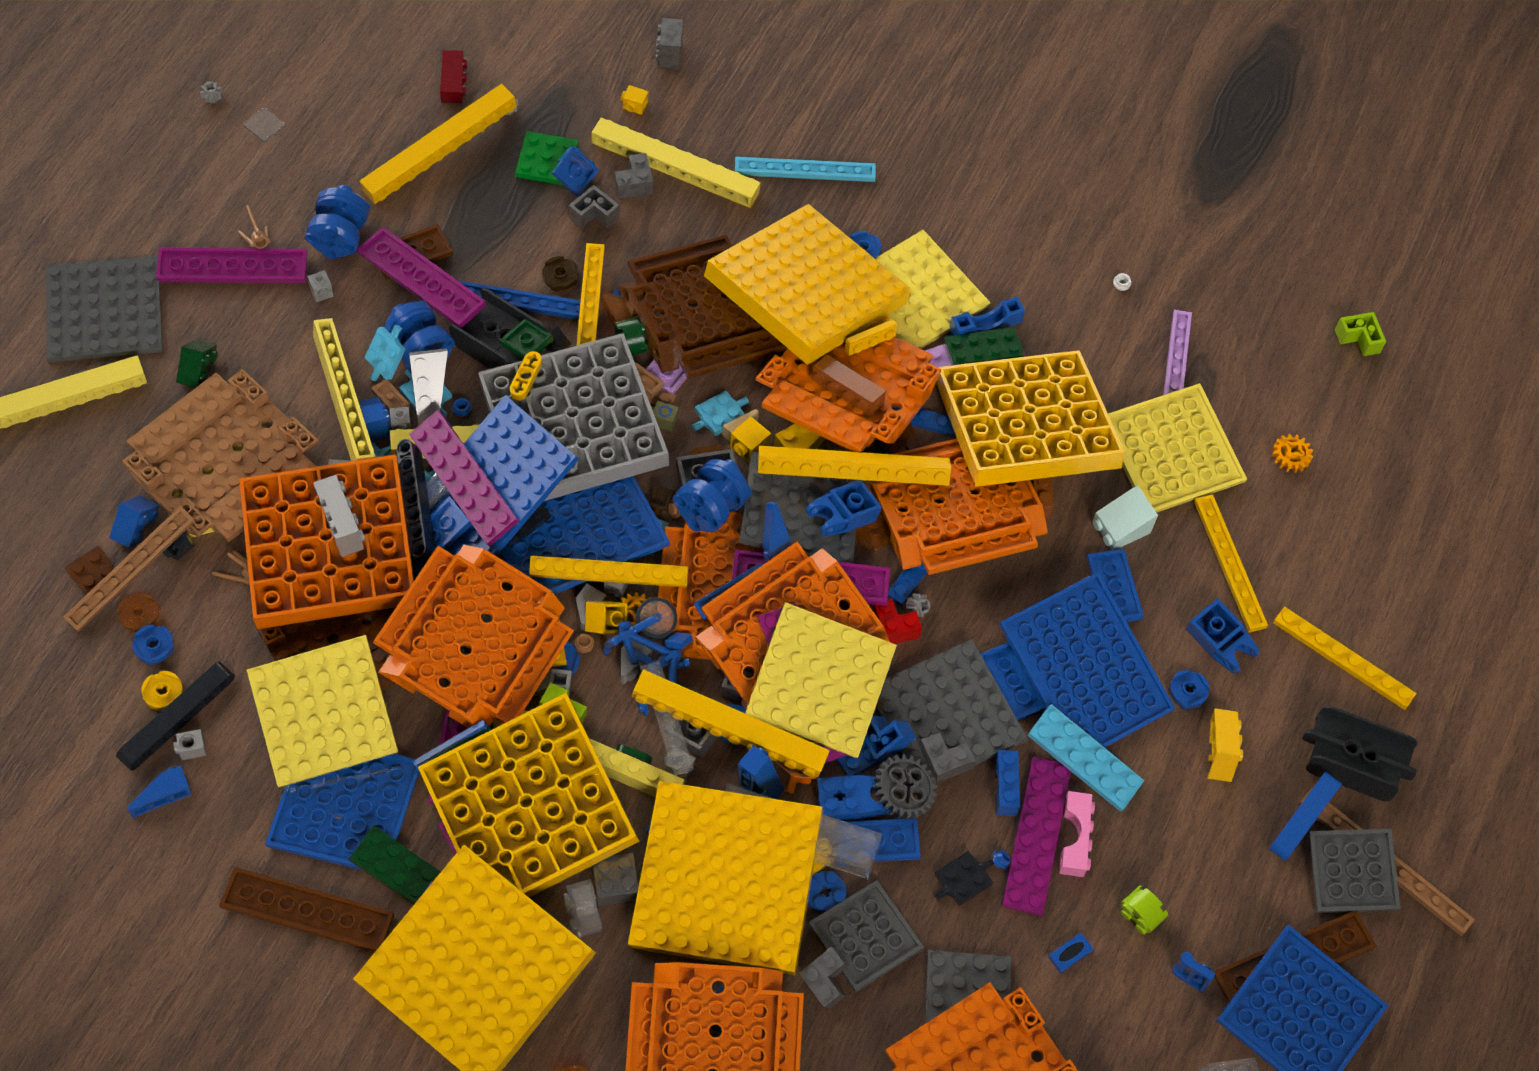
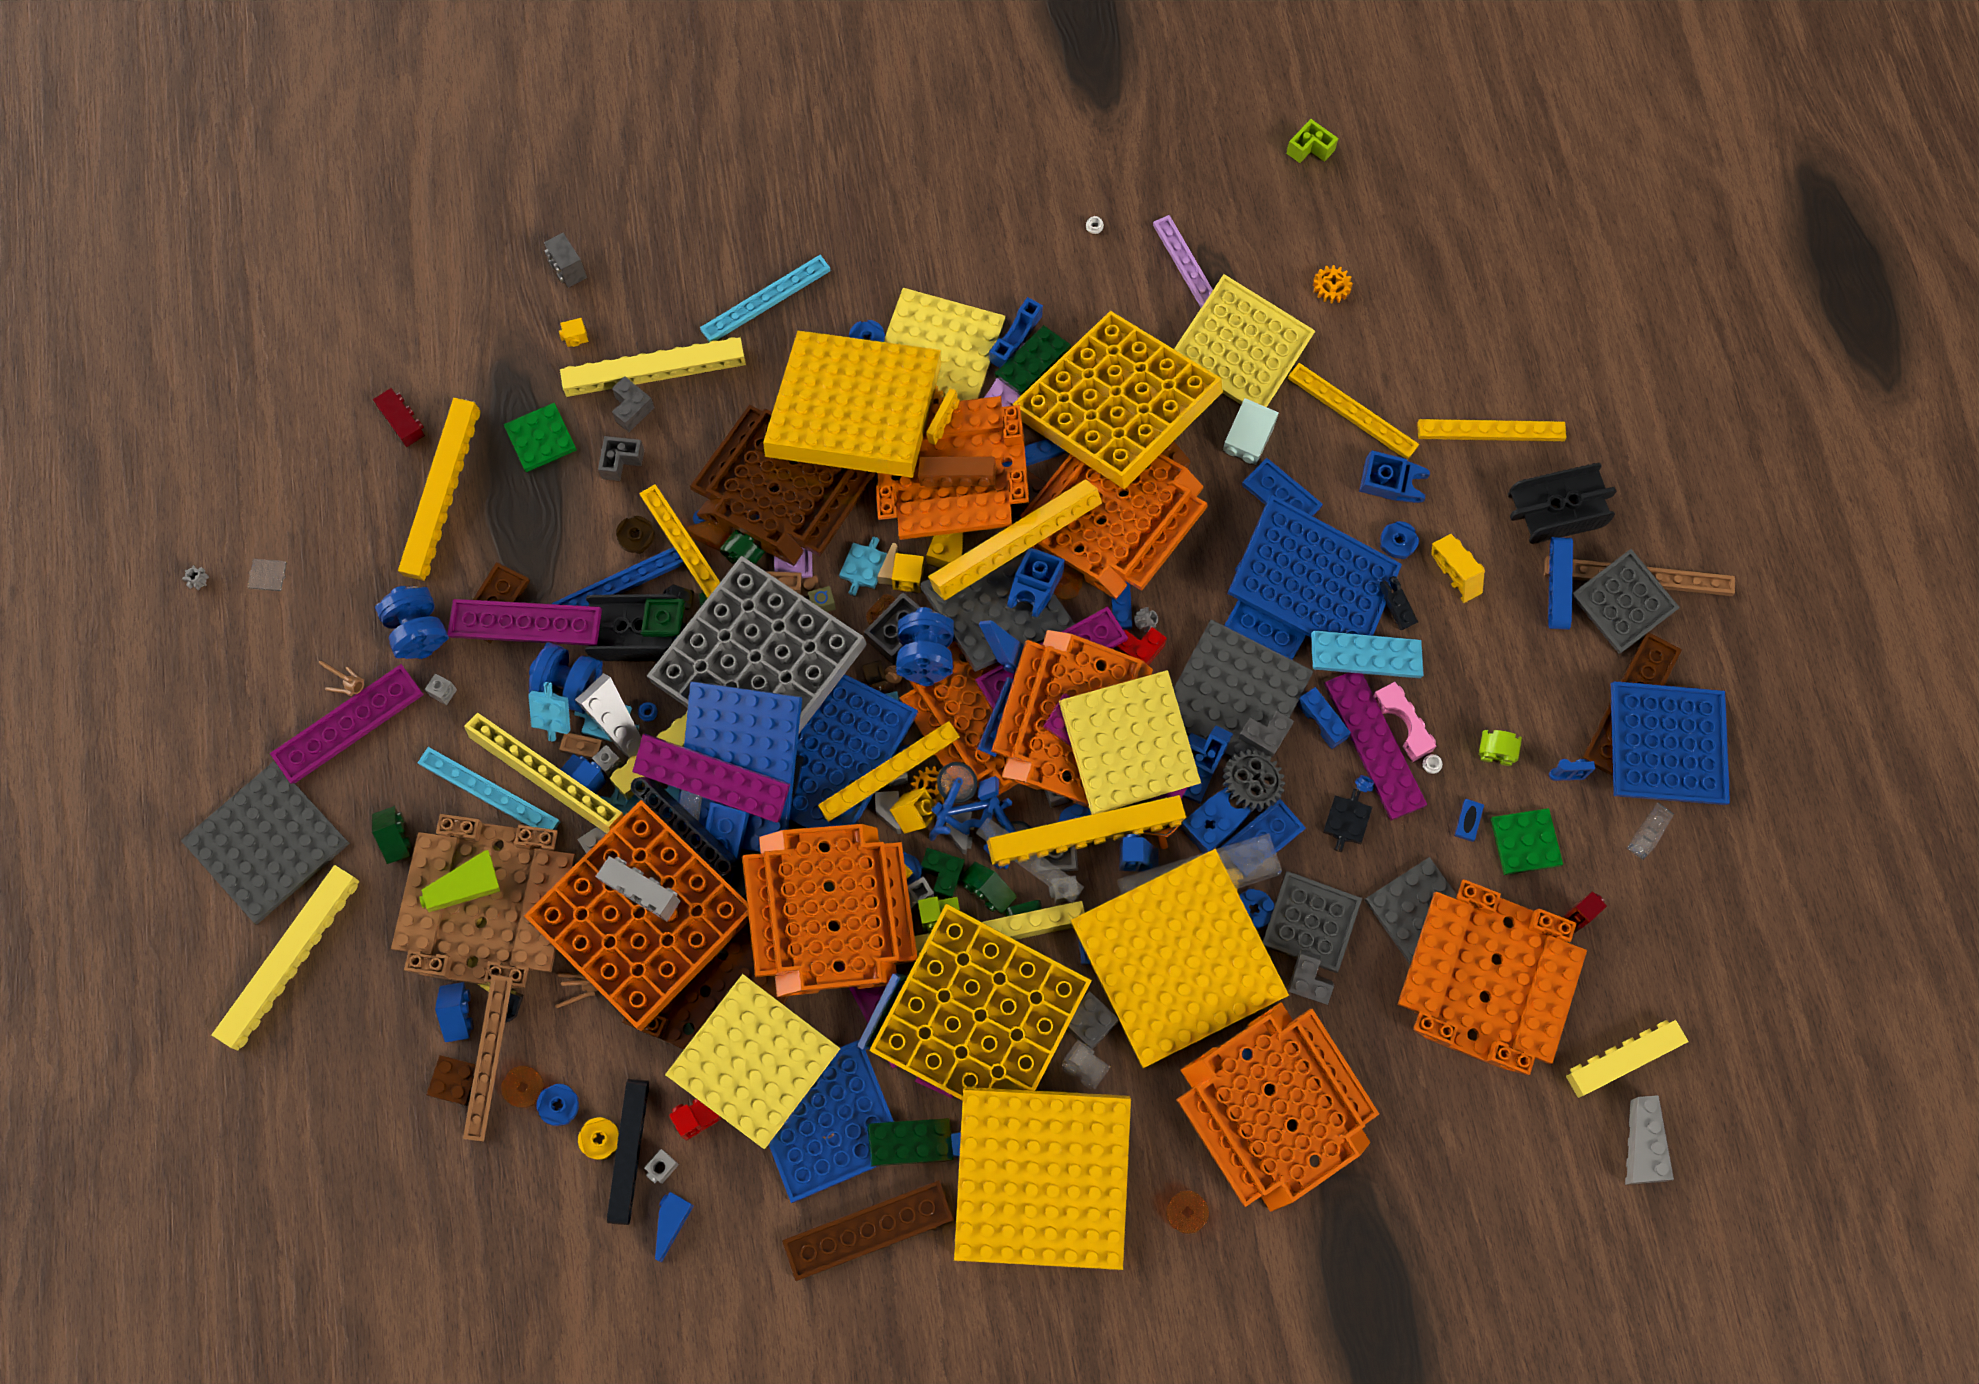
camera: 30 degrees left, 10 degrees up
(216, 429) = (465, 883): none -> lime slope
(240, 726) = (693, 1119): none -> red brick
(293, 381) = (486, 790): none -> medium azure plate
(526, 383) = (697, 657): yellow beam -> none
(575, 170) = (576, 433): blue plate -> none
(584, 643) = (910, 843): medium nougat plate -> none
(596, 682) = (946, 868): none -> dark green brick
(617, 714) = (988, 886): none -> dark green brick
(1074, 885) = (1432, 763): none -> white plate
(1108, 1006) = (1526, 841): none -> green plate
(1146, 738) = (1398, 603): none -> black hinge

